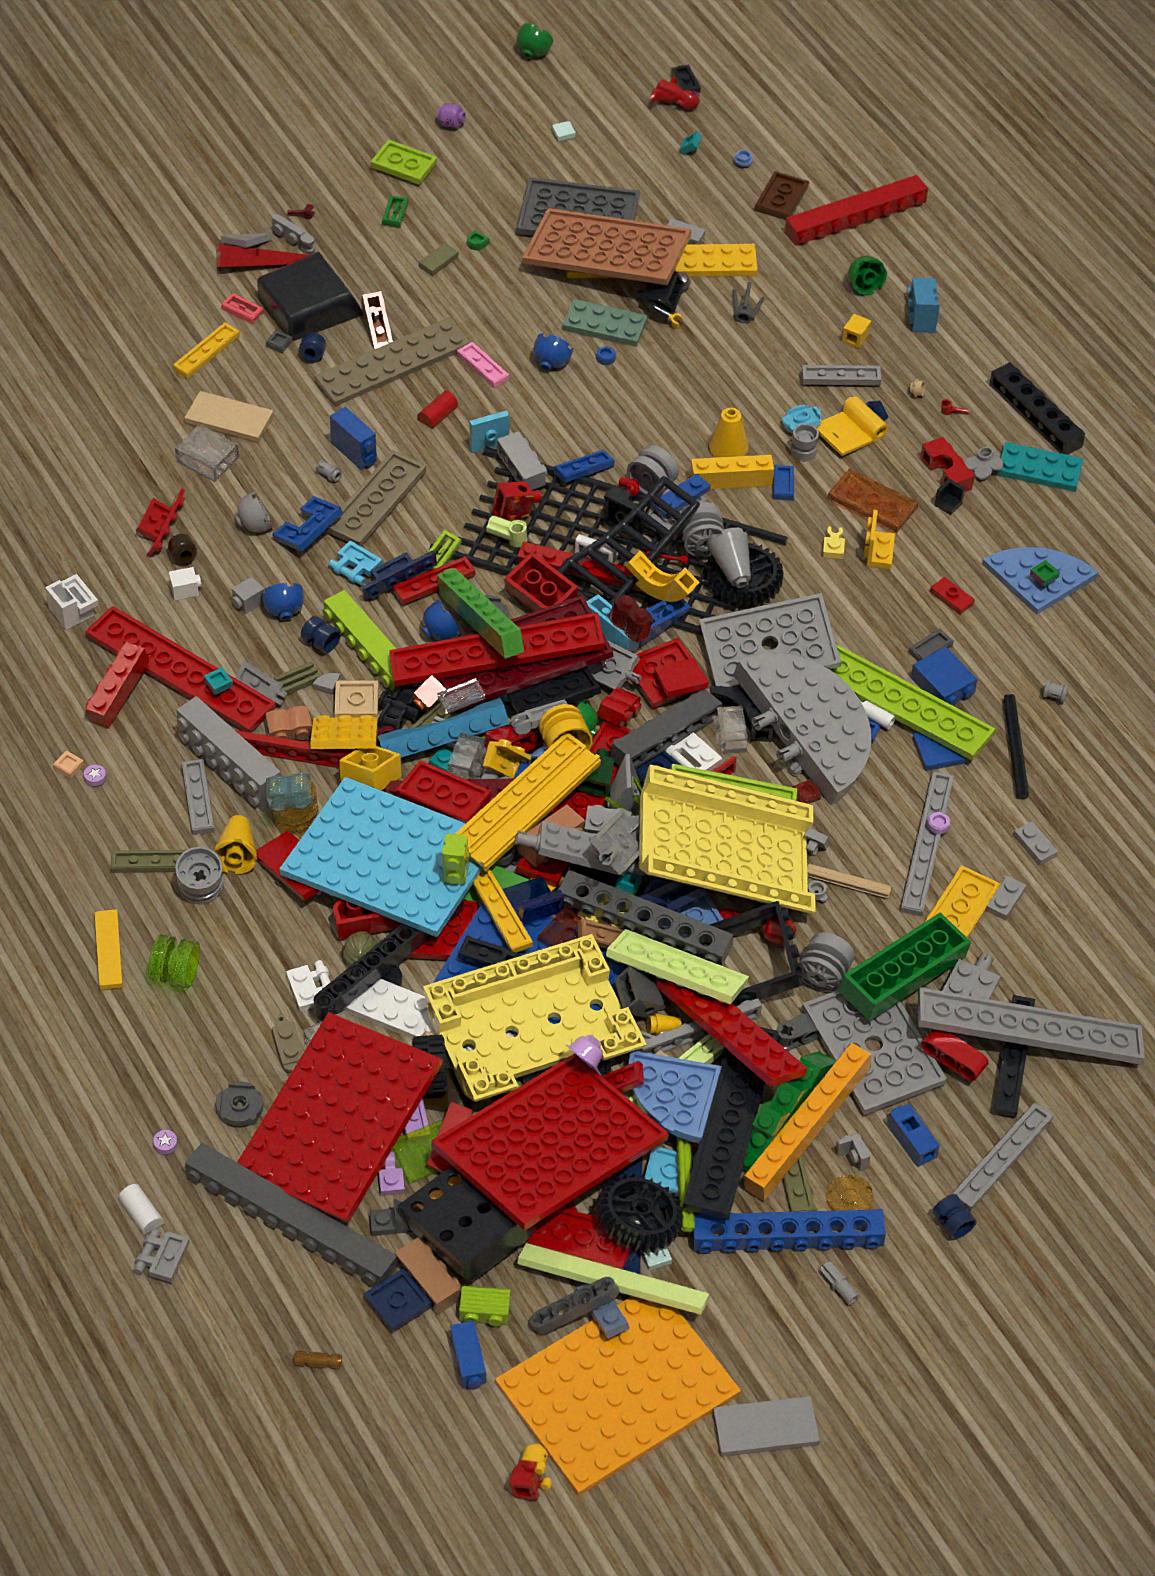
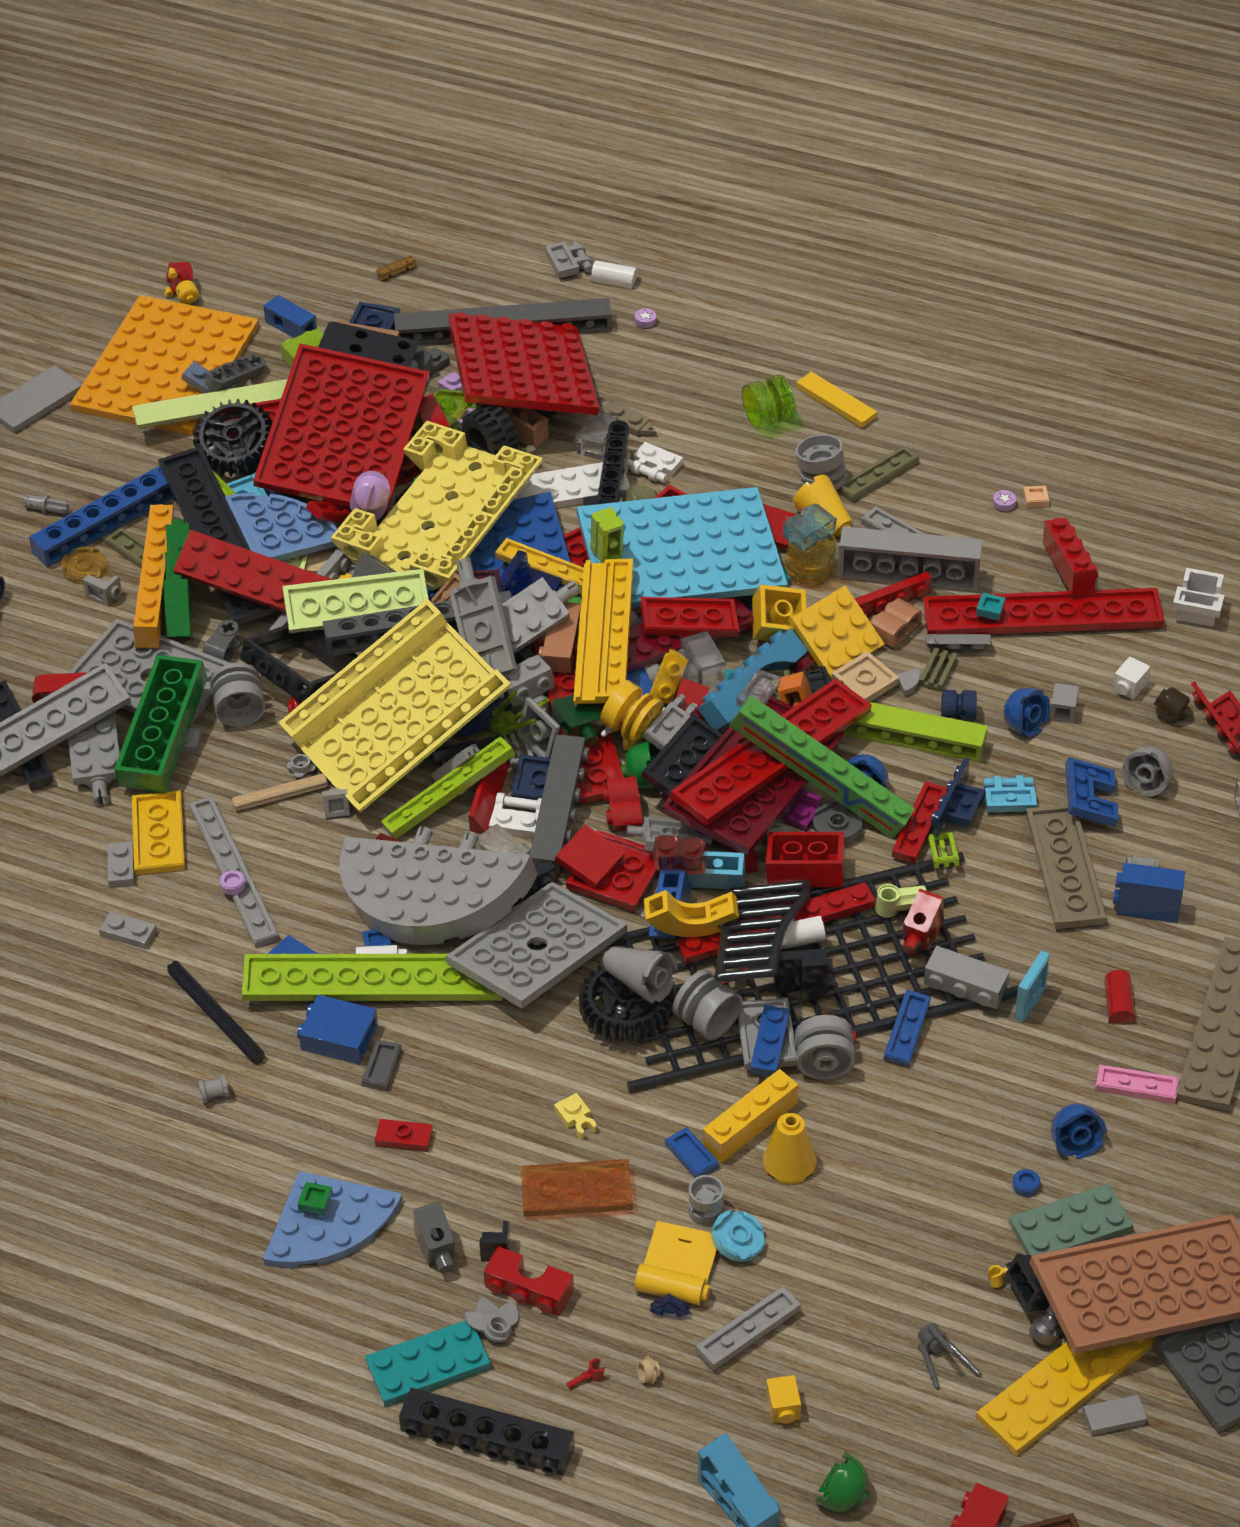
camera: 145 degrees right, 5 degrees down
(239, 1115) = (626, 366): dark grey plate -> none
(483, 952) = (522, 529): black hinge -> none
(880, 547) = (526, 1132): yellow bracket -> none
(913, 1134) = (62, 626): blue brick -> none
(986, 509) = (434, 1236): none -> dark grey torso

